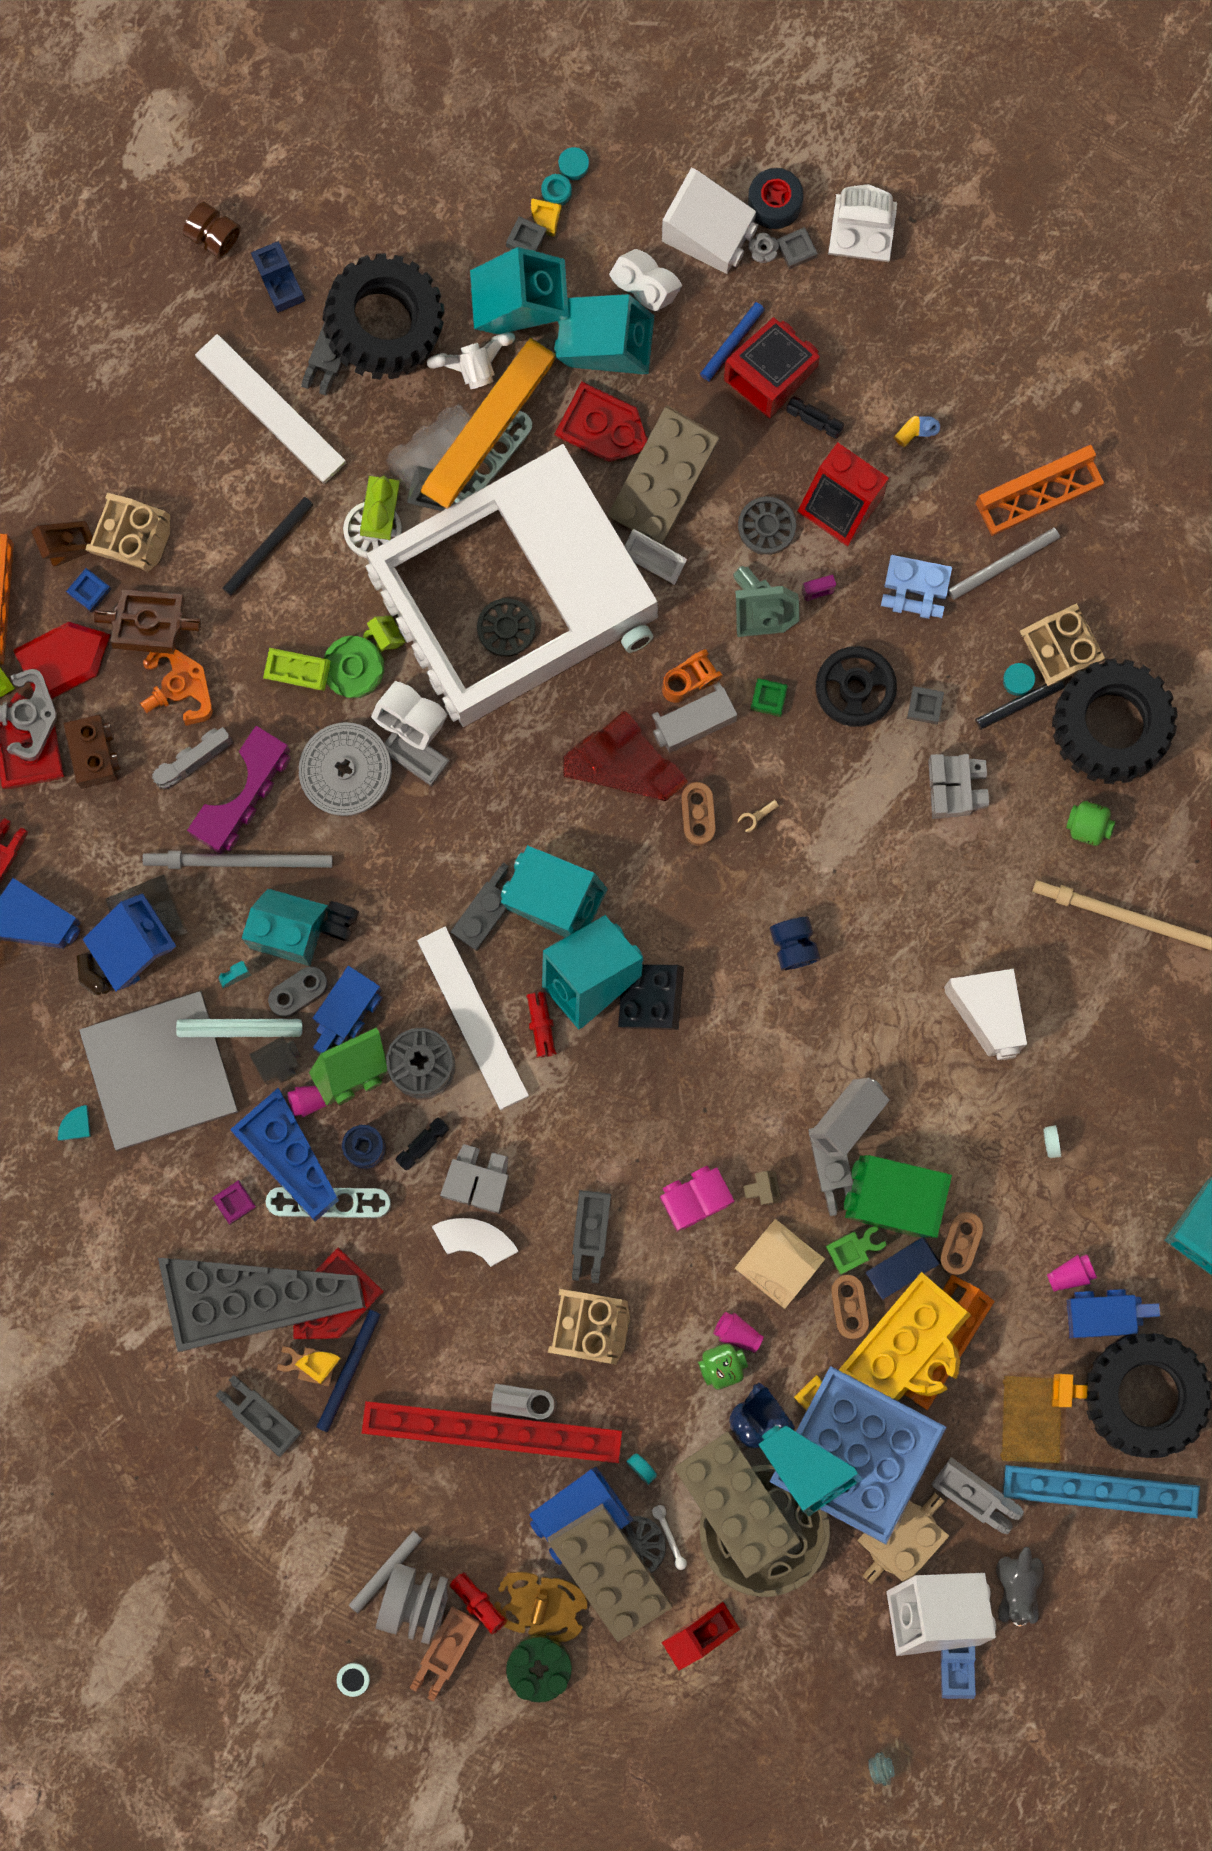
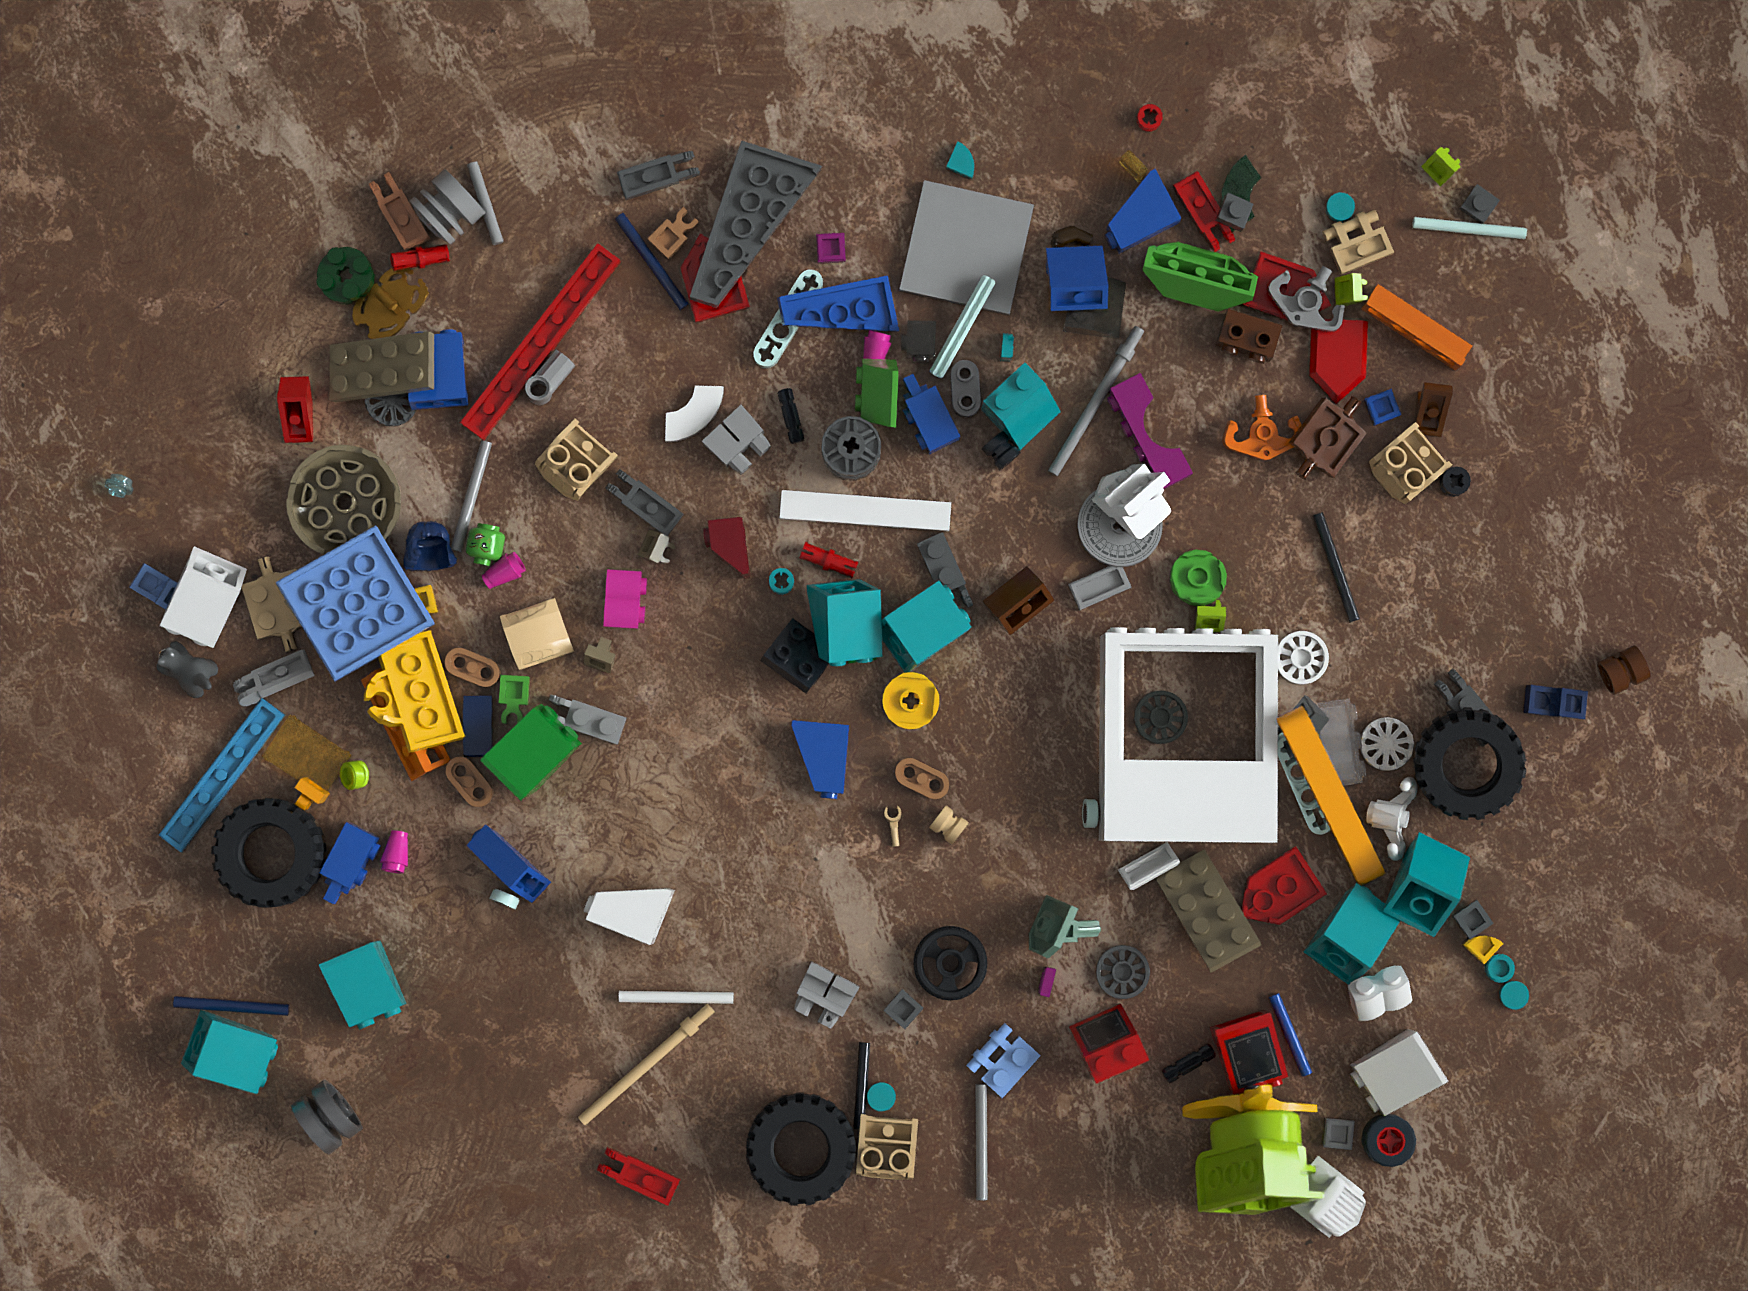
camera: 115 degrees right, 5 degrees up
(59, 828) = (1199, 276): none -> bright green wedge
(127, 486) = (1450, 485): none -> black wheel
(191, 759) = (1197, 409): light grey hinge -> none
(270, 409) = (1448, 633): white tile -> none
(297, 669) = (1221, 532): lime plate -> none
(312, 767) = (1134, 499): none -> white piece
(318, 1365) = (667, 239): yellow tile -> none
(353, 1679) = (420, 134): tile -> none
(364, 1147) = (813, 368): dark blue wheel -> none
(379, 507) = (1314, 672): lime tile -> none
(407, 406) = (1386, 744): none -> white wheel
(409, 715) = (1132, 598): white brick -> none
(474, 820) = (1018, 600): none -> reddish brown brick
(582, 1050) = (772, 581): none -> teal bush
(582, 1125) = (729, 543): none -> dark red slope
(613, 861) = (900, 688): none -> yellow plate
(623, 761) = (999, 746): clear red panel -> none
(627, 1199) = (654, 546): none -> dark tan tile
(641, 1468) = (445, 438): teal tile -> none
(659, 1513) = (405, 432): white hinge -> none
(683, 1410) = (471, 496): none -> light grey bar
(694, 720) = (998, 819): light grey brick -> none
(696, 675) = (1034, 839): orange piece -> none
(727, 760) = (951, 826): none -> tan wheel
(730, 918) = (824, 754): none -> blue slope
(736, 1504) = (374, 490): dark tan plate -> none
(760, 255) = (1345, 1106): light grey plate -> none
(769, 697) = (983, 890): green tile -> none
(795, 943) = (774, 792): dark blue wheel -> none
(807, 1469) = (365, 554): teal slope -> none
(849, 1117) = (614, 752): light grey brick -> none
(869, 303) = (1253, 1155): none -> lime brick
(917, 426) = (1132, 1141): arm -> none
(1017, 1158) = (508, 863): none -> blue slope
(1022, 1360) = (354, 774): none -> lime tile
(1035, 479) = (1033, 1207): orange fence -> none
(1044, 925) = (676, 997): none -> white bar
(1090, 823) = (732, 1081): bright green head -> none

